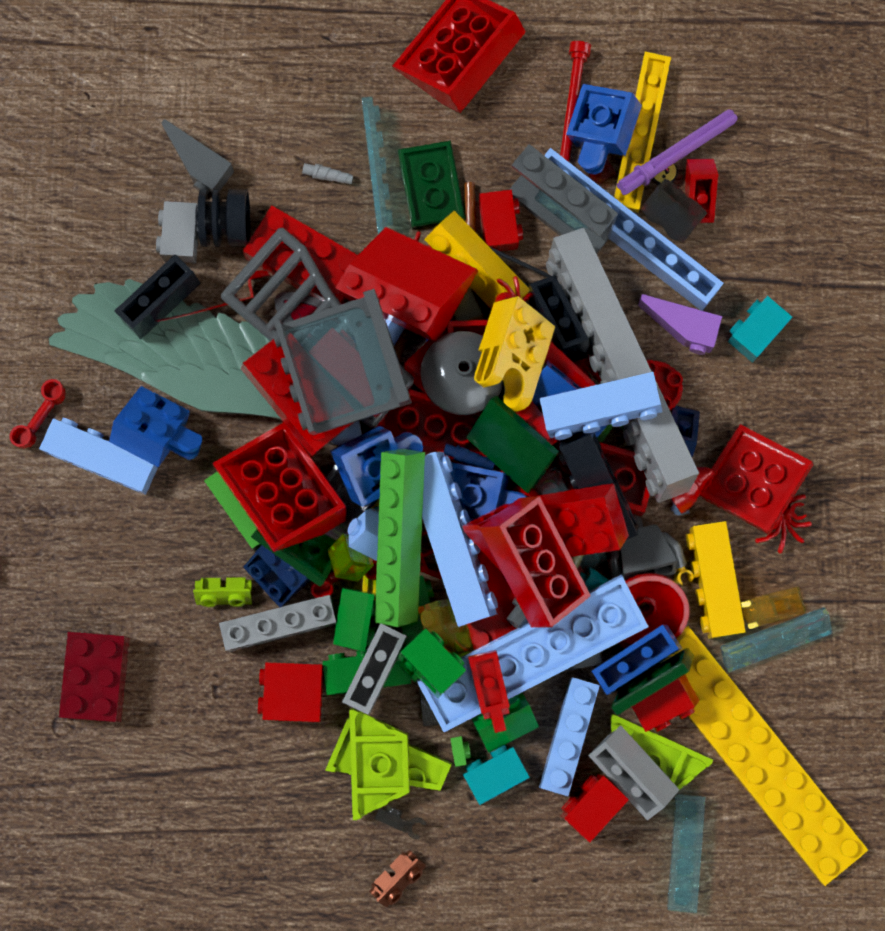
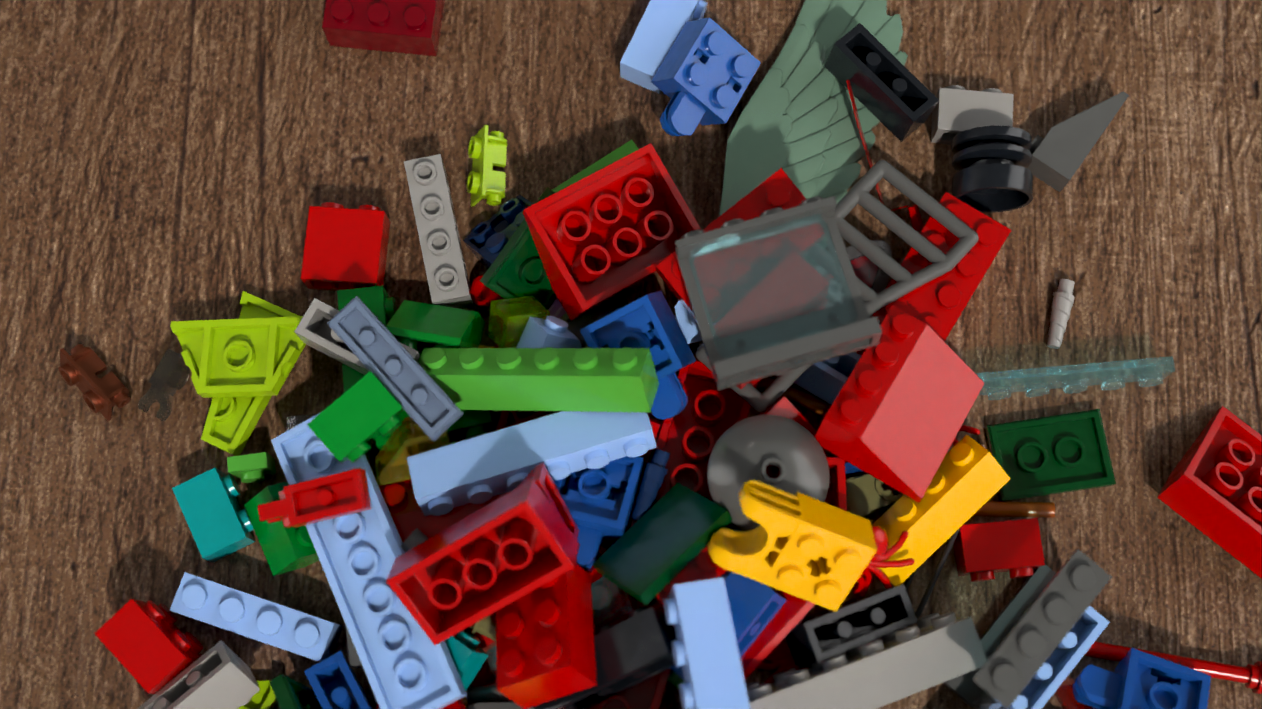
camera: 95 degrees right, 5 degrees down
(394, 637) = (395, 368): none -> sand blue tile

